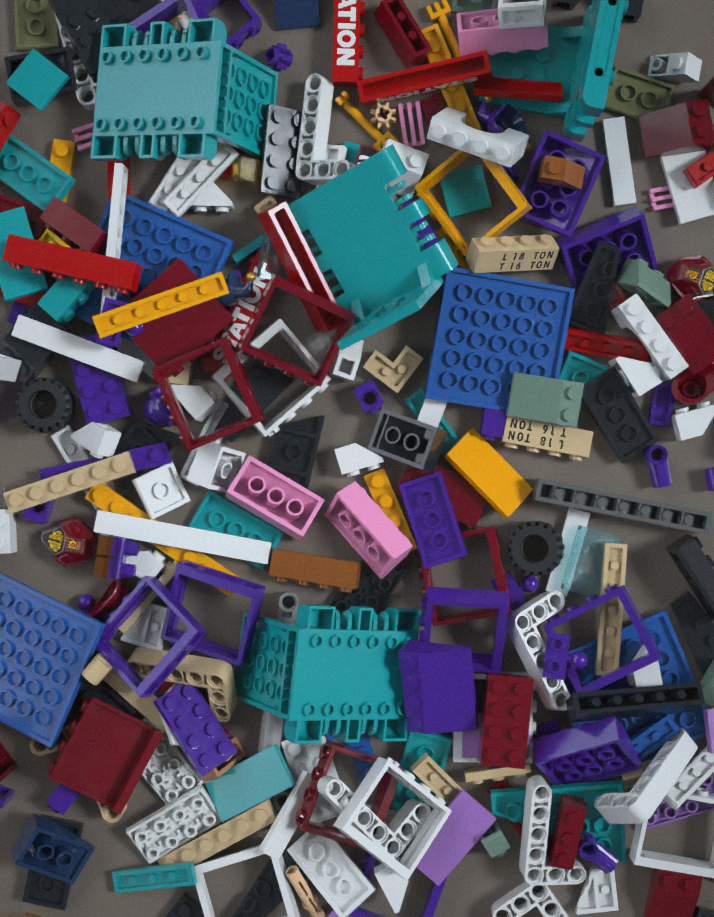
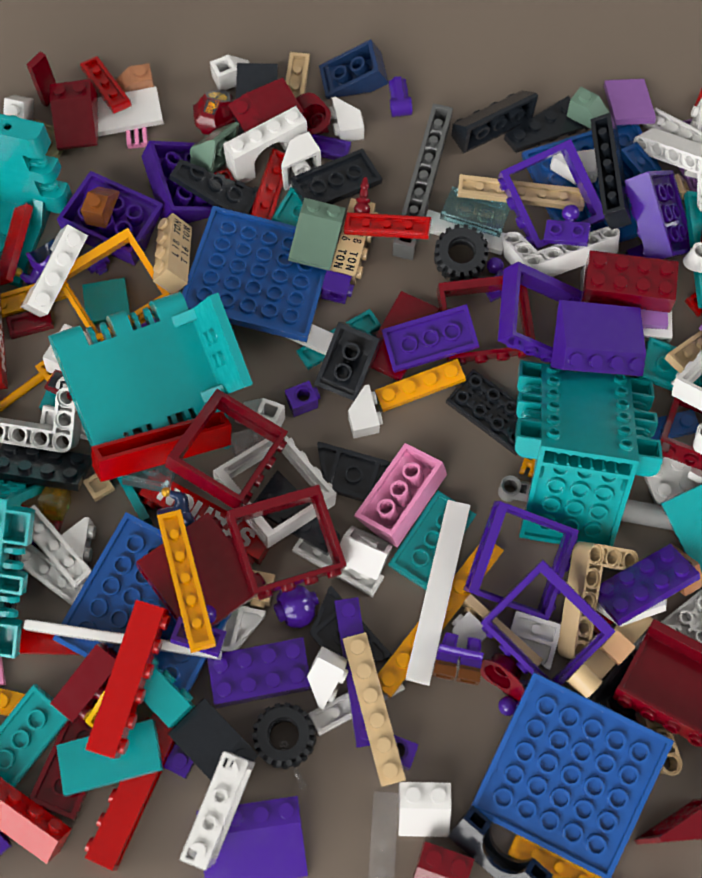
camera: 85 degrees left, 20 degrees down
(70, 542) = (439, 718): dark red helmet -> none
(78, 348) = (223, 687): white tile -> none
(136, 703) = (617, 647): none -> light nougat tile
(161, 490) = (387, 613): white tile -> none
(197, 400) = (291, 563): white slope -> none
(316, 569) = (476, 457): dark orange brick -> none
(368, 529) = (438, 402): bright pink slope -> none
(386, 111) = (16, 364): light nougat gear -> none
(393, 373) = (279, 374): tan plate -> none
(409, 106) = (23, 343): bright pink tile -> none
(478, 774) = (683, 320): tan plate -> none
(488, 473) = (385, 292): light orange tile -> none
(557, 471) = (387, 225): none -> red tile
(580, 444) = (362, 204): none -> dark red bar
(618, 161) = (107, 167): white tile -> none
(658, 468) = (386, 151): dark purple piece -> none

